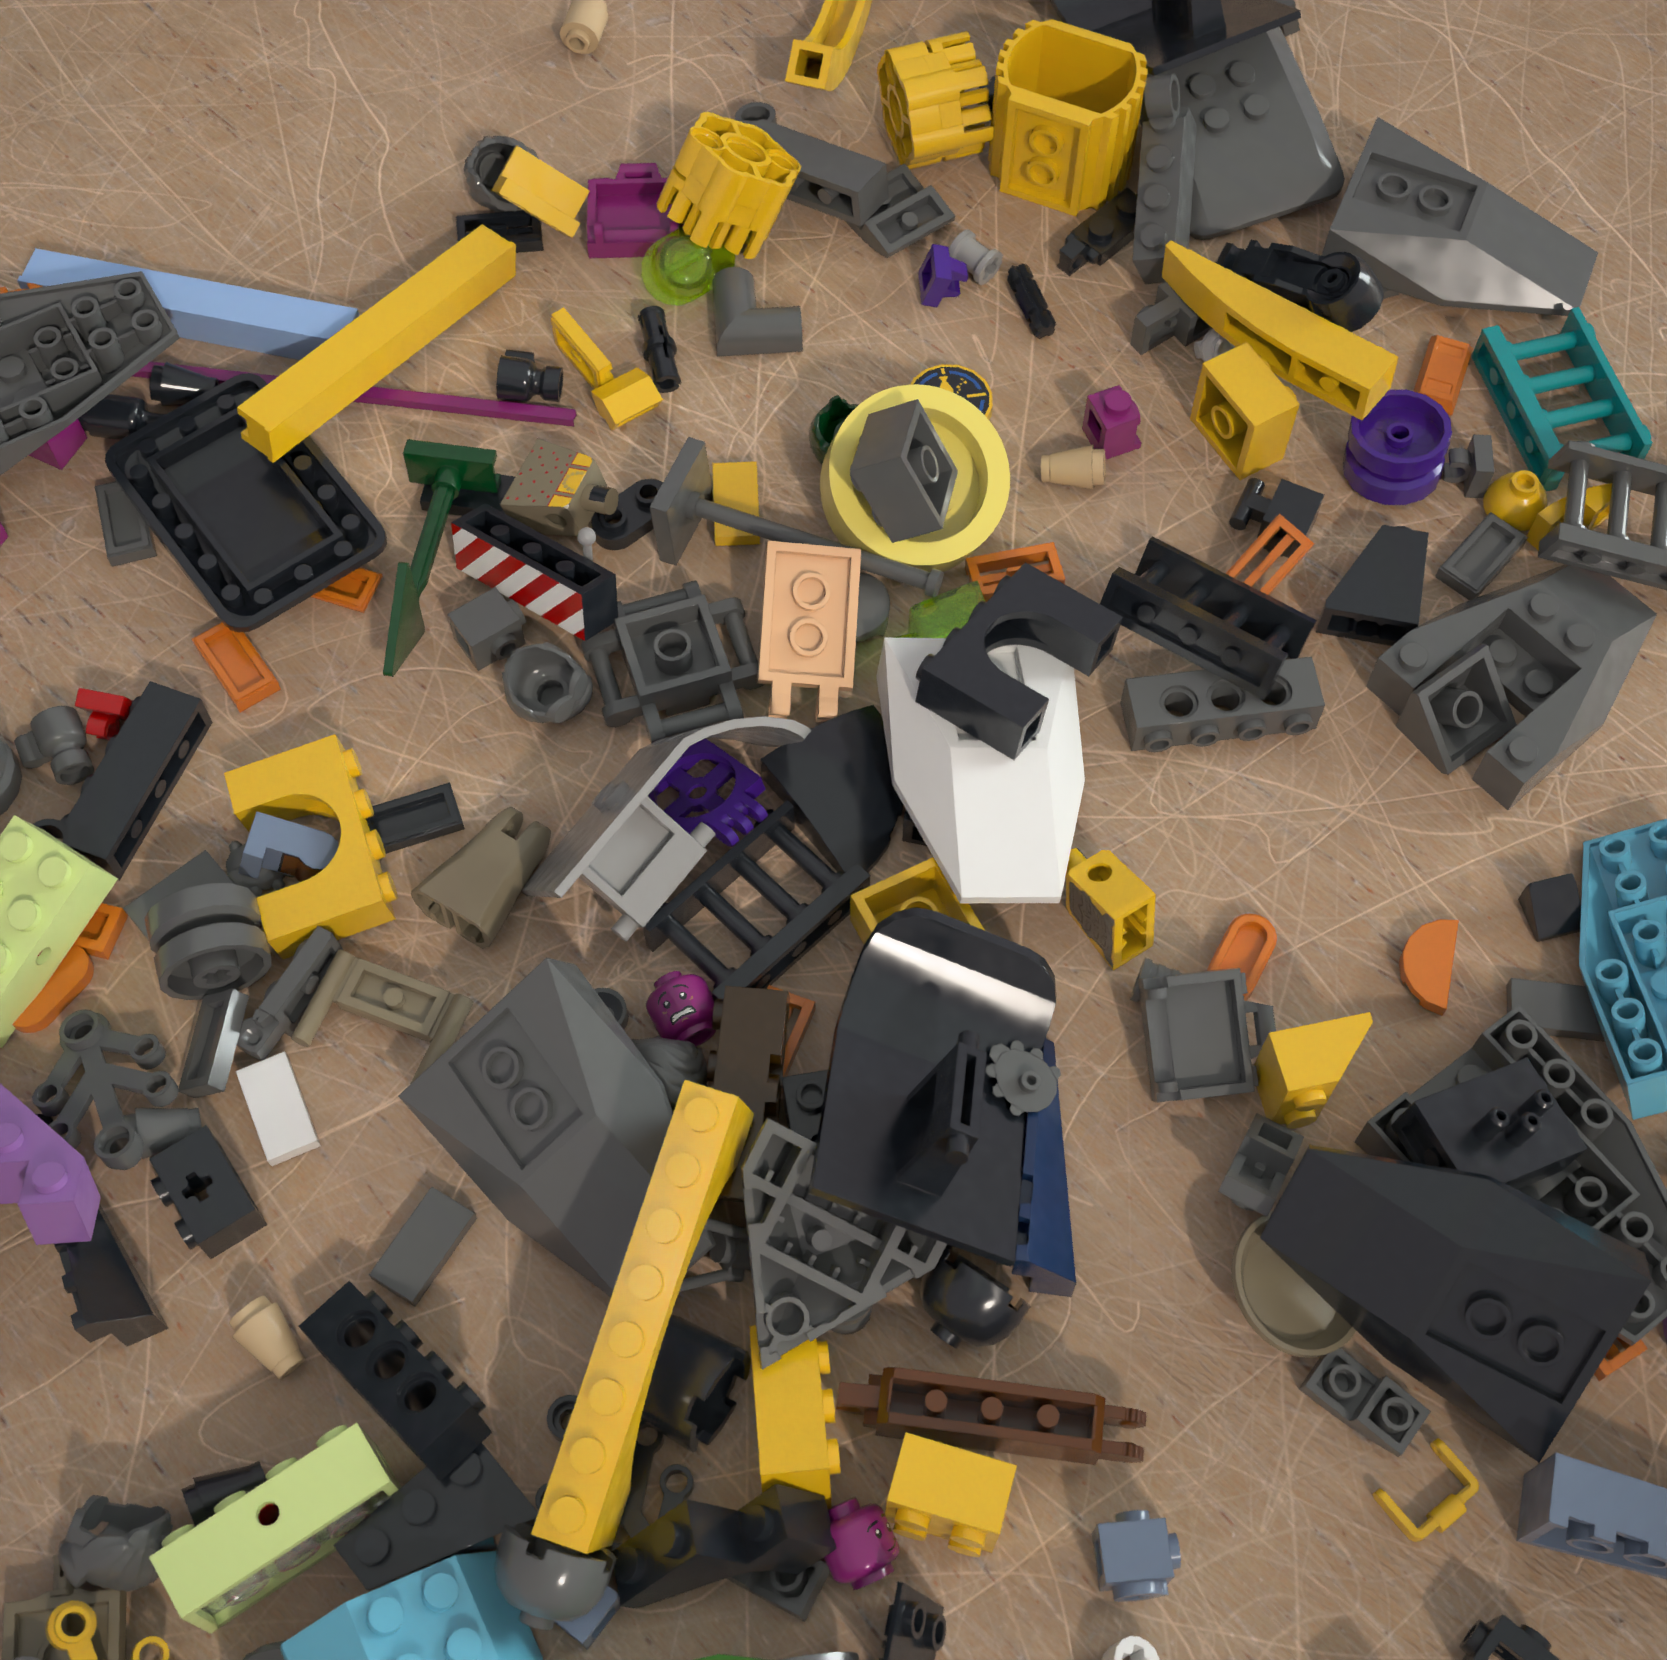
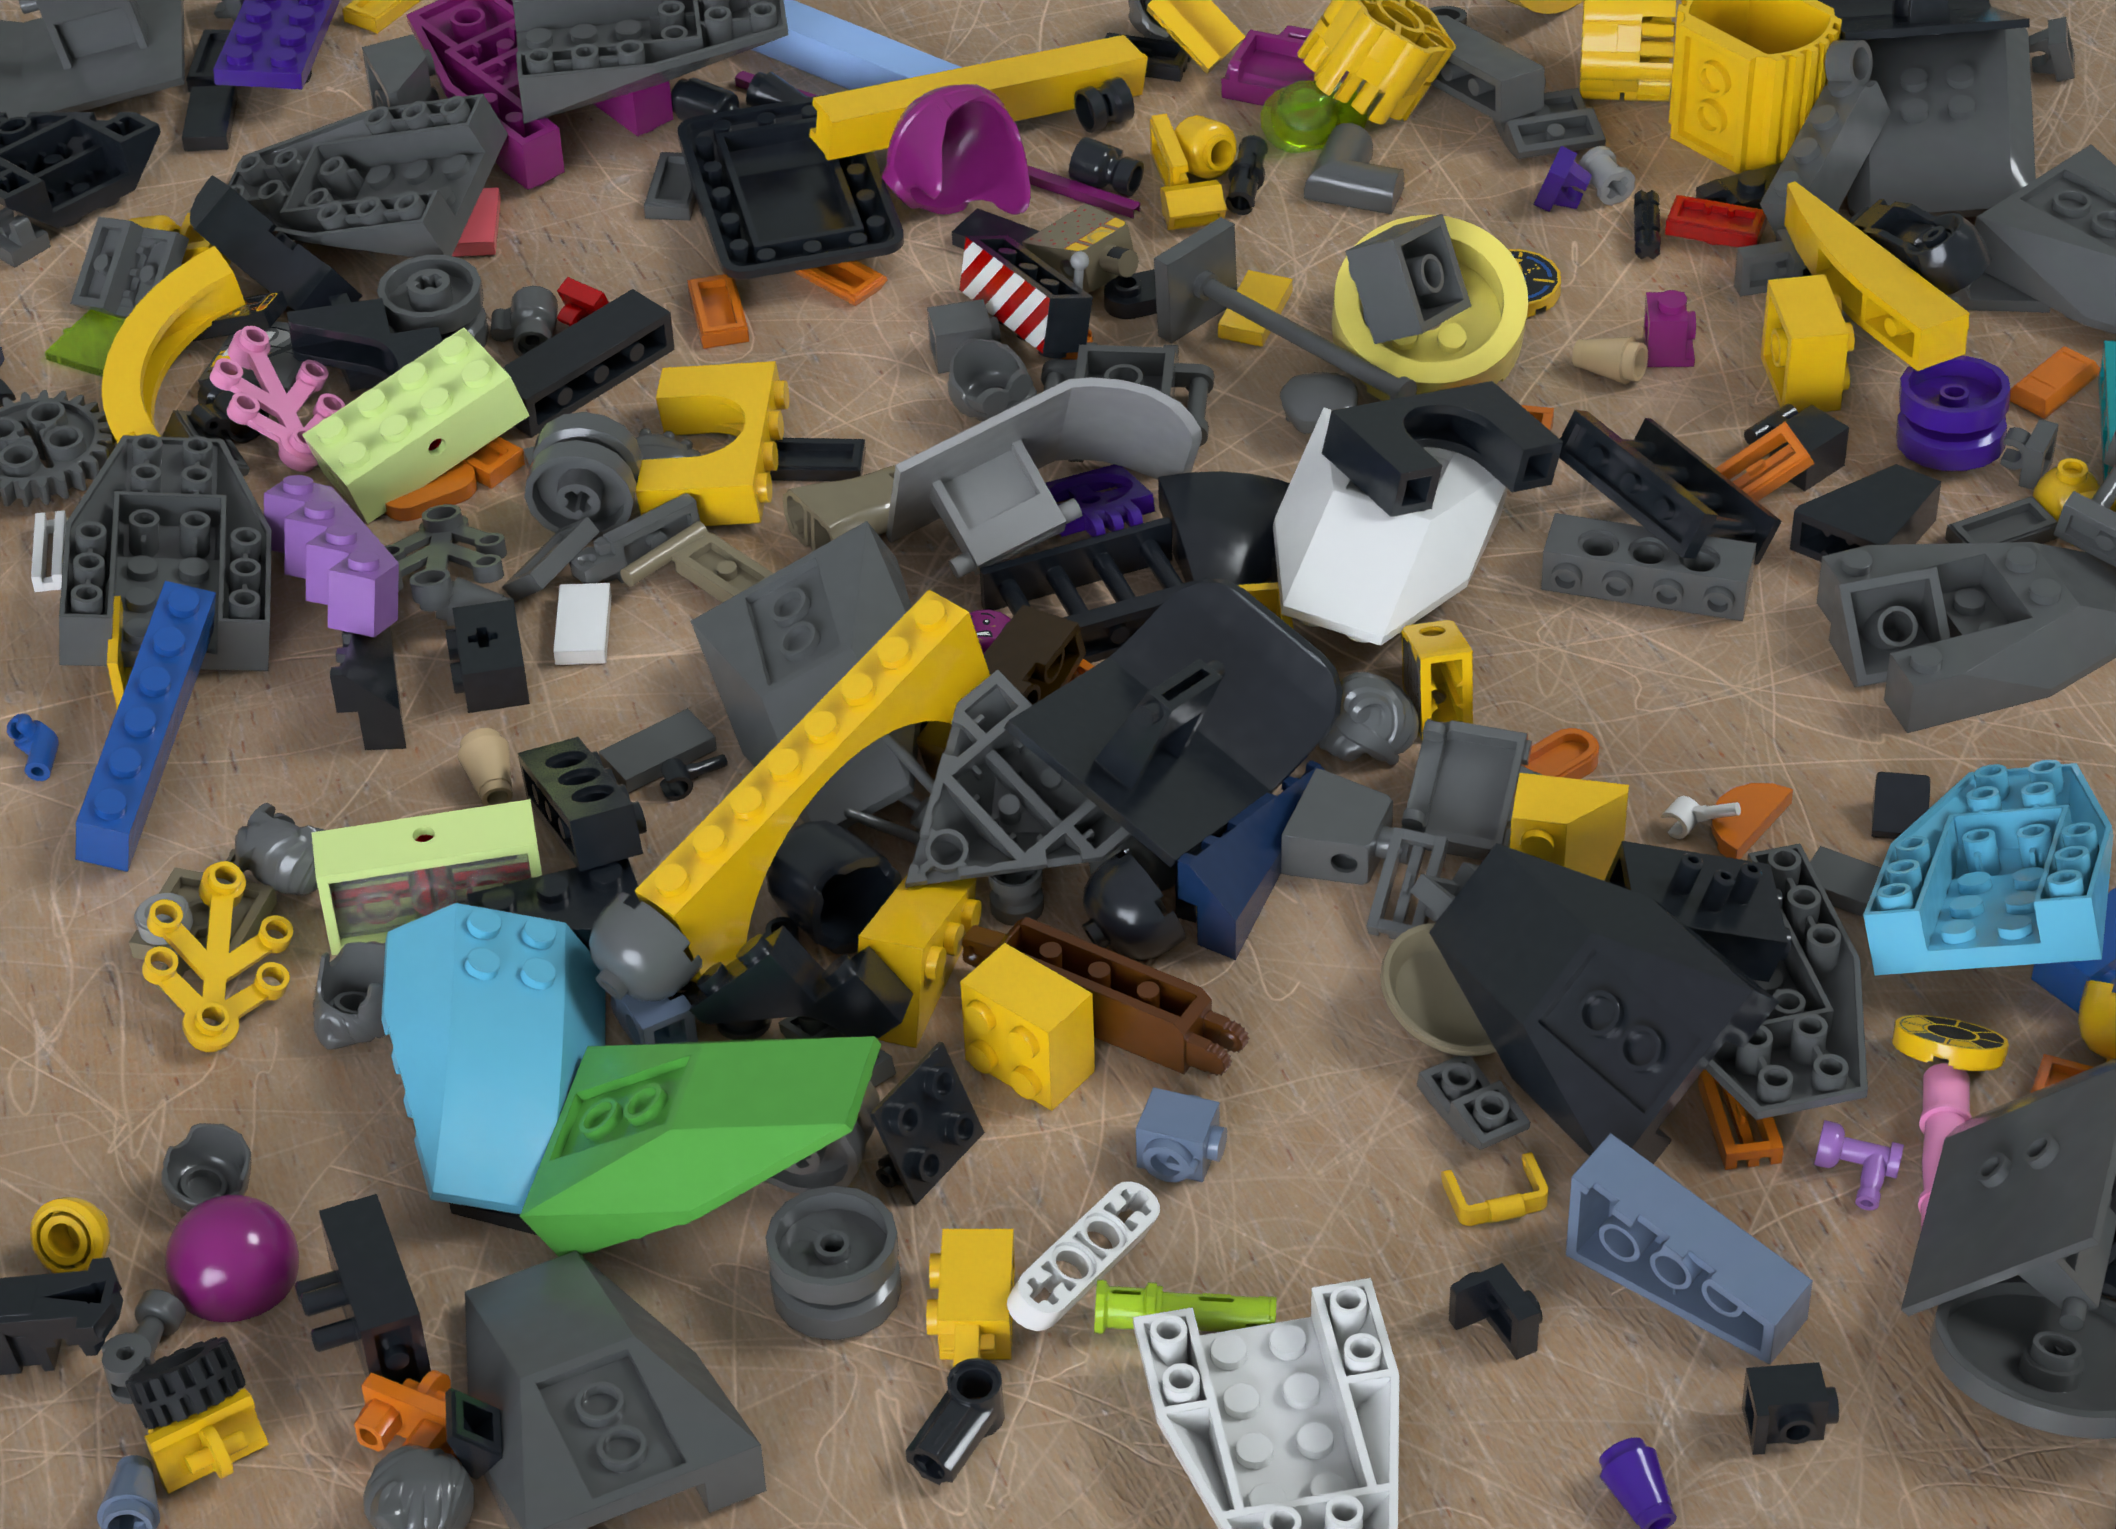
camera: 25 degrees right, 20 degrees down
(286, 848) = (681, 431): sand blue leg -> none
(386, 406) = (957, 150): none -> magenta piece
(448, 471) = (980, 206): dark green piece -> none
(456, 1274) = (678, 776): none -> black hand
(493, 305) = (1105, 104): none -> black wheel
(611, 328) = (1206, 146): none -> yellow head
(808, 624) = (1263, 391): light nougat tile -> none
(862, 1543) = (920, 1031): magenta head -> none
(1022, 1077) = (1271, 765): dark grey piece -> none
(1081, 972) = (1372, 720): none -> dark grey hair
(1090, 282) = (1715, 222): none -> red plate
(1108, 1117) = (1338, 831): none -> dark grey torso
(1174, 1165) = (1376, 923): none -> dark grey tile
(1382, 981) = (1690, 813): none -> white hand

